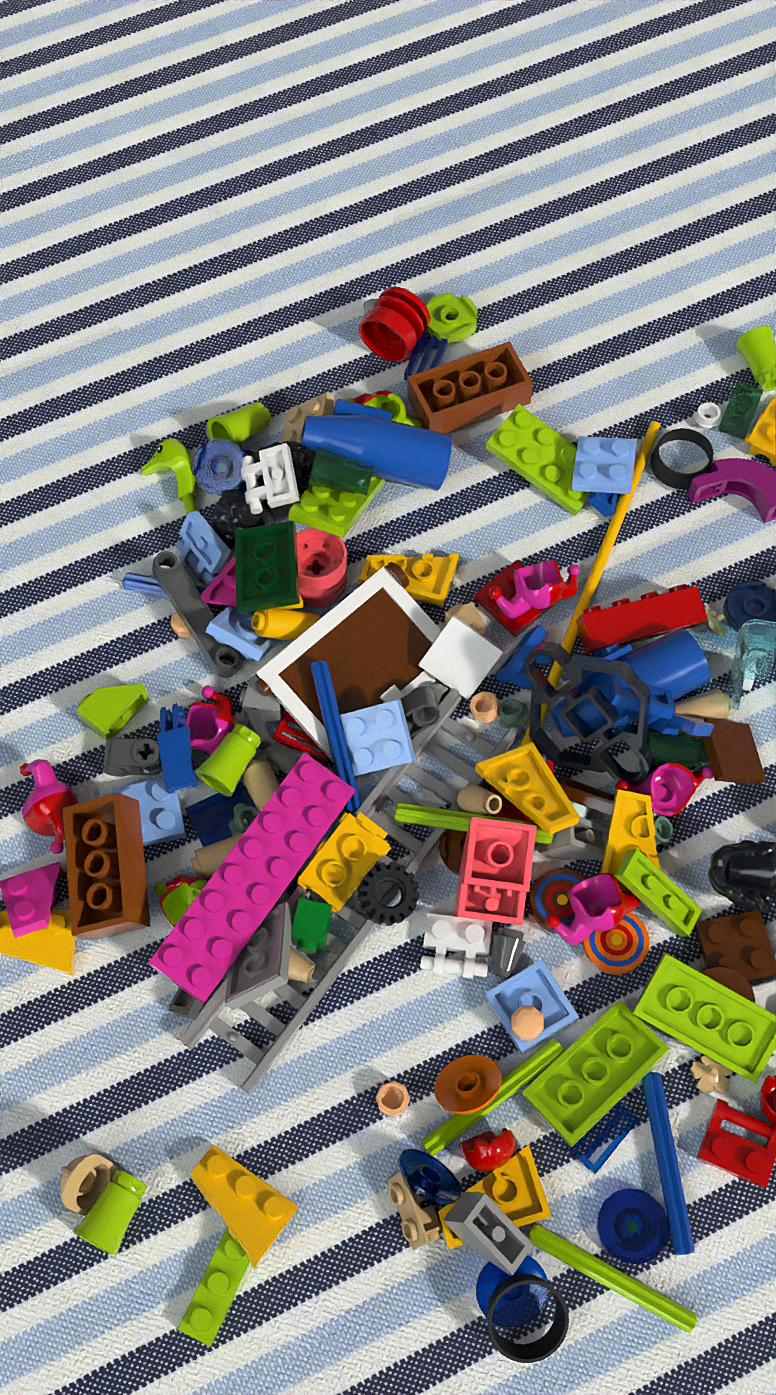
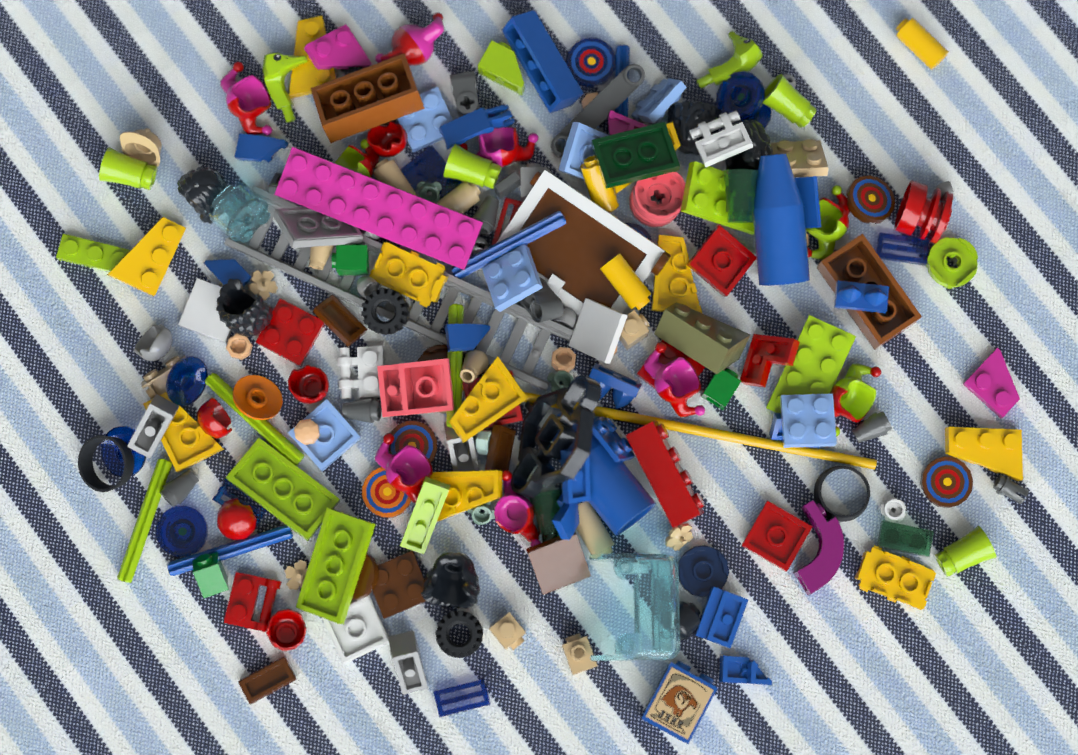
camera: 75 degrees right, 15 degrees up
(32, 983) = (275, 69): none -> lime animal
(60, 1029) = (246, 100): none -> dark pink piece
(117, 662) = (542, 61): none -> blue brick
(128, 1026) = (258, 147): none -> blue slope
(133, 616) = (591, 62): none -> clear blue tile
(165, 855) = (387, 140): none -> red hair
(185, 1103) = (201, 197): none -> black hair
(209, 300) = (921, 42): none -> yellow brick
(213, 1059) = (239, 212): none -> clear light blue brick
(290, 1094) = (226, 270): none -> blue slope
(314, 1052) = (262, 284): none -> tan plant
(335, 1130) = (201, 312): none -> white tile
(348, 915) = (366, 285): none -> light grey hinge
(349, 1079) = (242, 309): none -> black hair
(365, 1217) = (154, 343): none -> light grey hair
(367, 374) = (870, 199): none -> reddish brown tile
(384, 960) = (340, 320): none -> reddish brown tile
(386, 1028) = (290, 332): none -> red plate
(403, 522) = (721, 261): none -> red plate
(411, 612) = (626, 282): none -> yellow brick
(440, 804) = (464, 336): none -> blue slope
(462, 1012) = (308, 384): none -> red hair
(478, 387) = (861, 296): none -> blue tile
(489, 553) = (701, 337): none -> olive wedge
(515, 496) = (763, 353): none -> red plate
(549, 545) = (721, 388): none -> green brick
(574, 422) = (852, 395): none -> lime piece
(574, 1217) = (178, 489): none -> dark grey cone
(585, 308) = (994, 384): none -> dark pink wing
(615, 416) = (873, 427): none -> dark grey cone
(629, 1143) = (236, 520): none -> red hair
(653, 322) = (989, 447): none -> yellow wing
(683, 365) = (946, 482): none -> reddish brown tile
(695, 315) = (1009, 488): none -> dark grey pin
(702, 1190) = (210, 574): none -> brick
(724, 527) = (776, 536): none -> red plate

